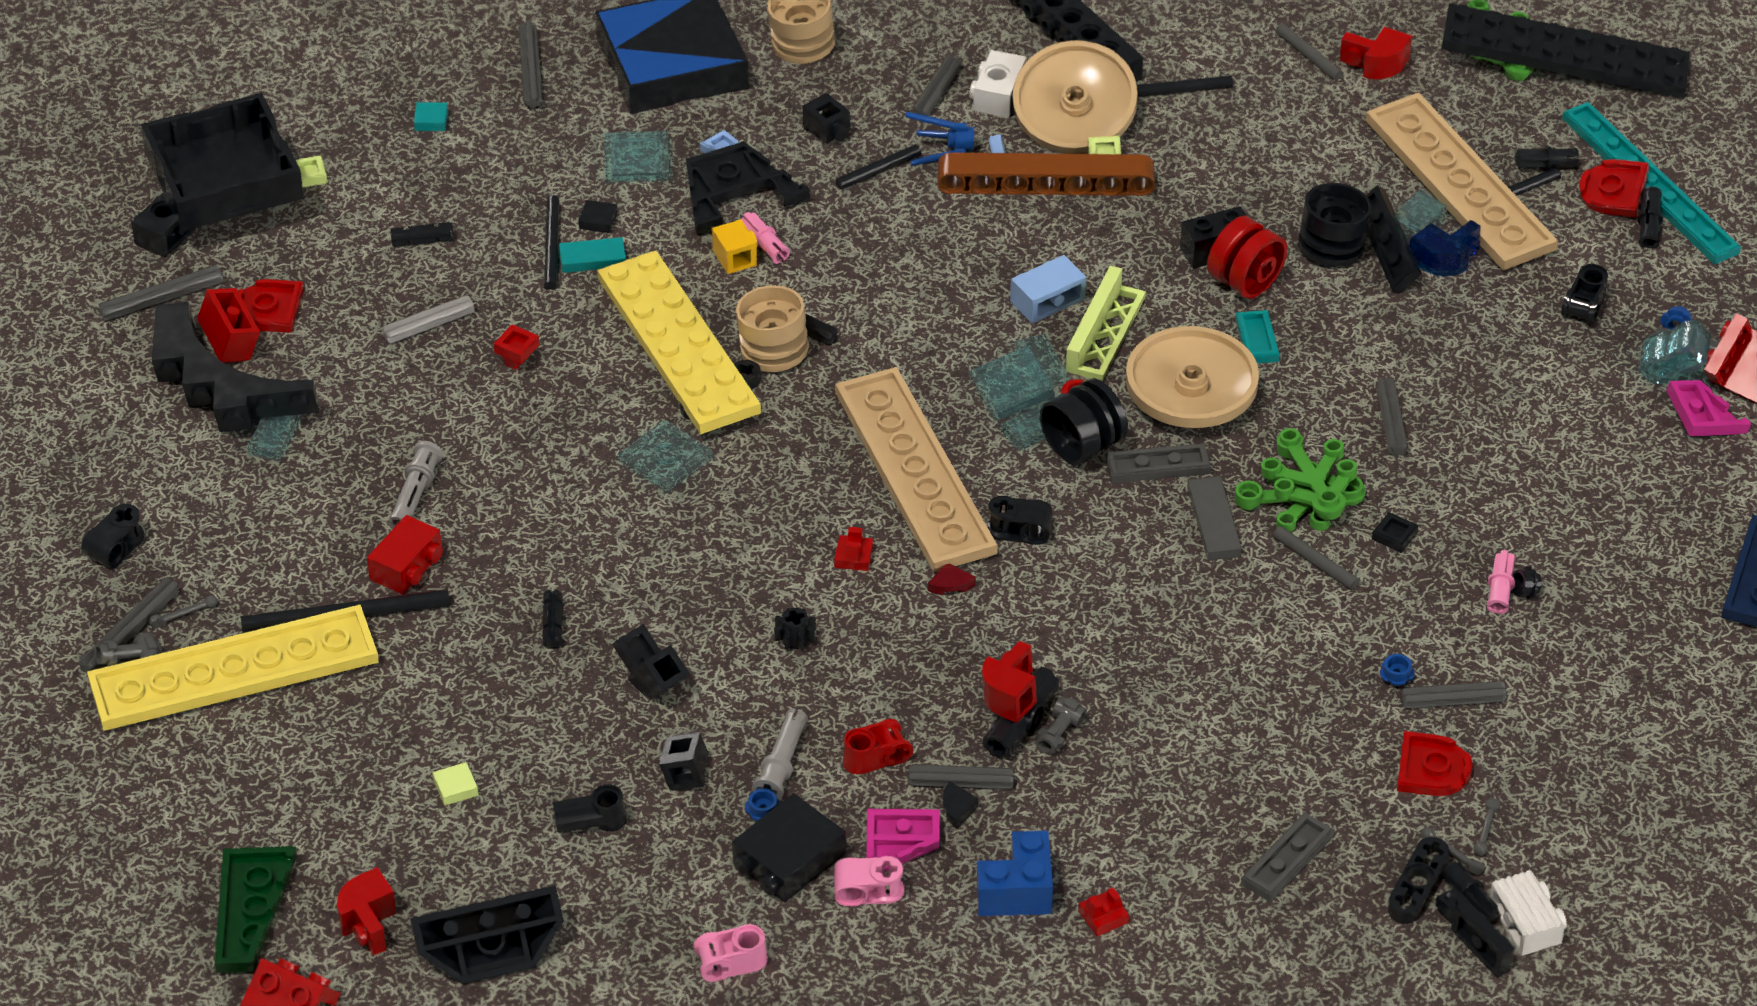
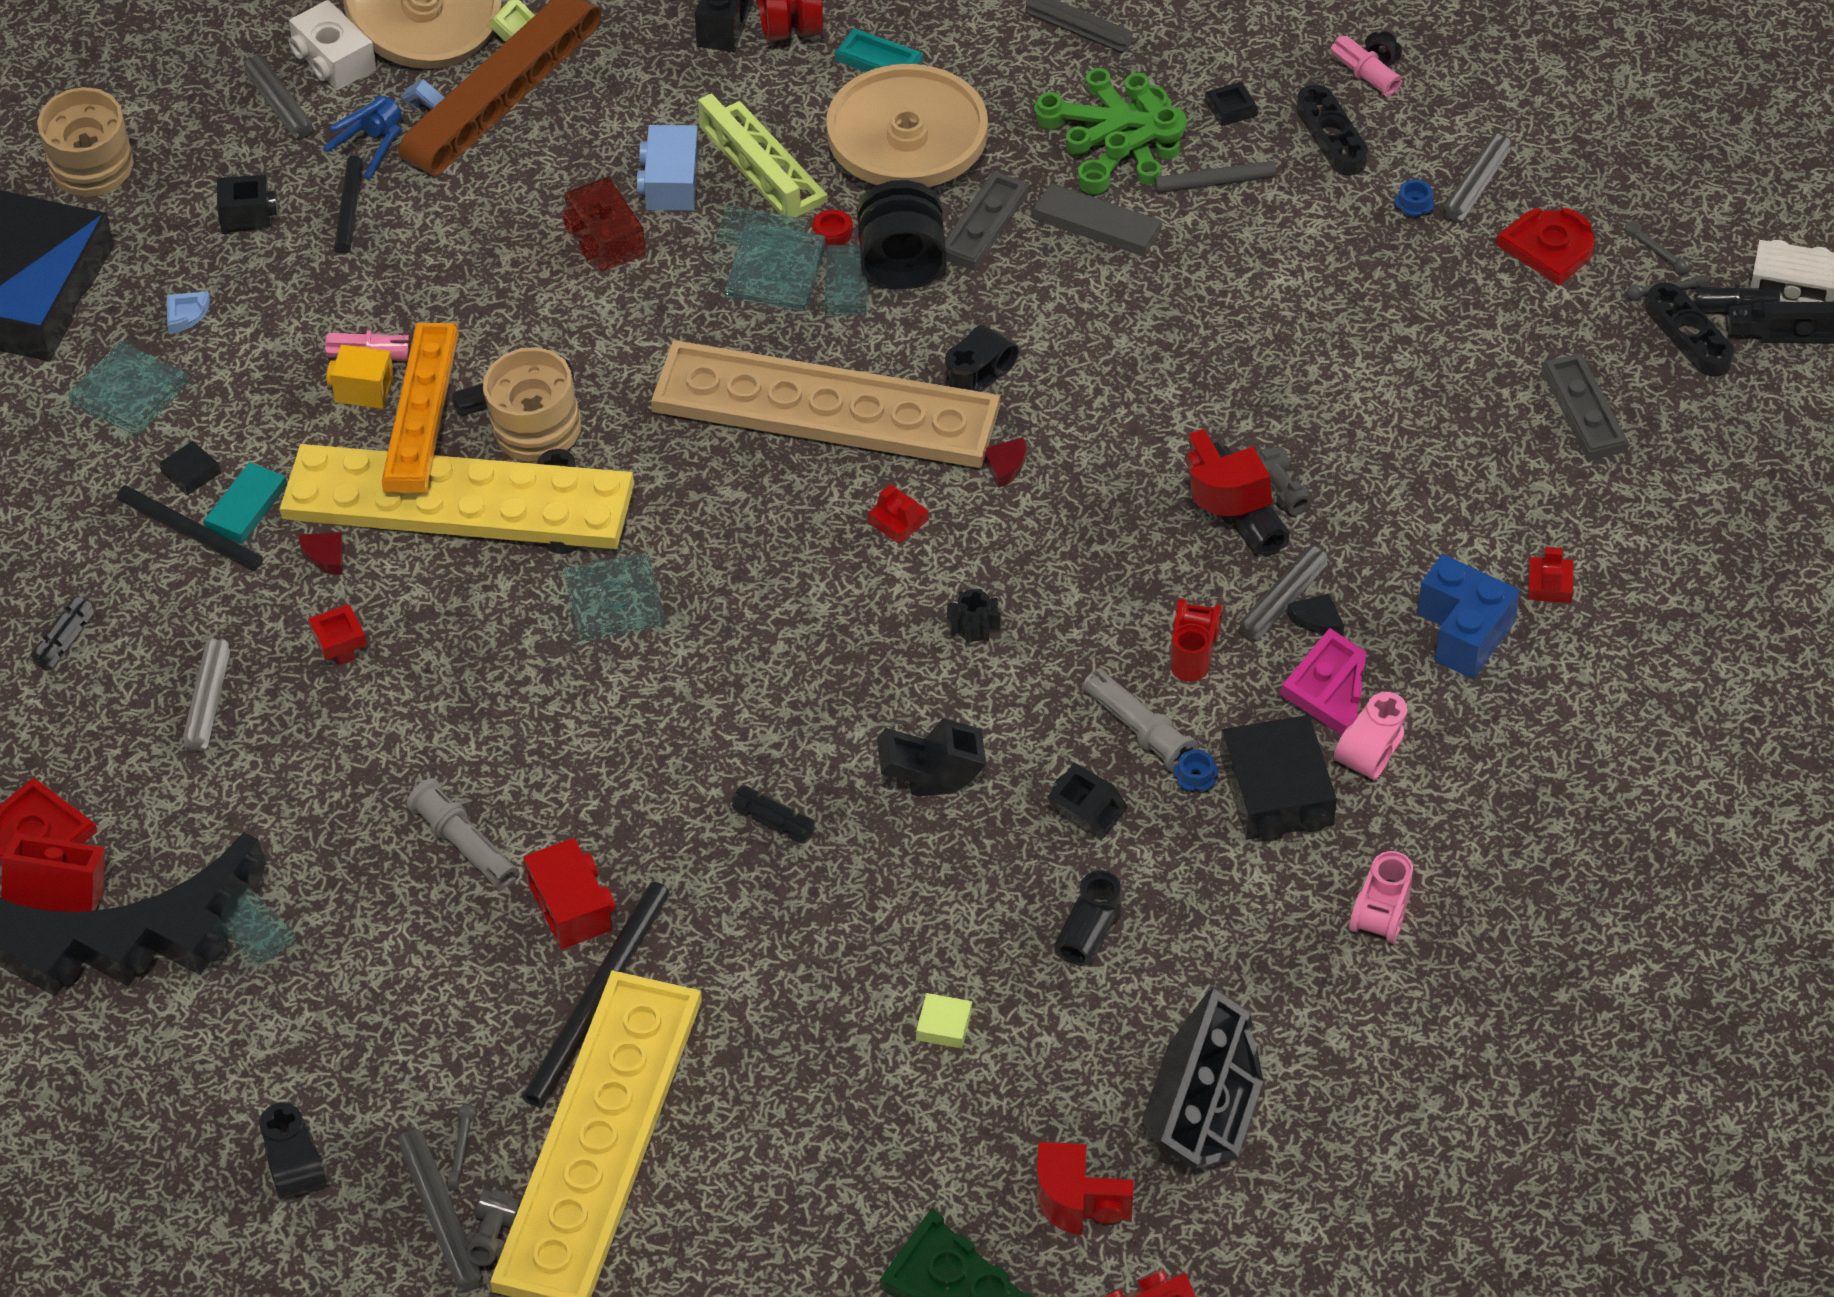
camera: 55 degrees left, 5 degrees up
(585, 309) = (323, 550): none -> dark red tile
(728, 283) = (420, 408): none -> light orange tile
(731, 174) = (243, 324): black wing -> none
(967, 284) = (603, 224): none -> clear red brick
(1421, 583) = (1332, 115): none -> black beam

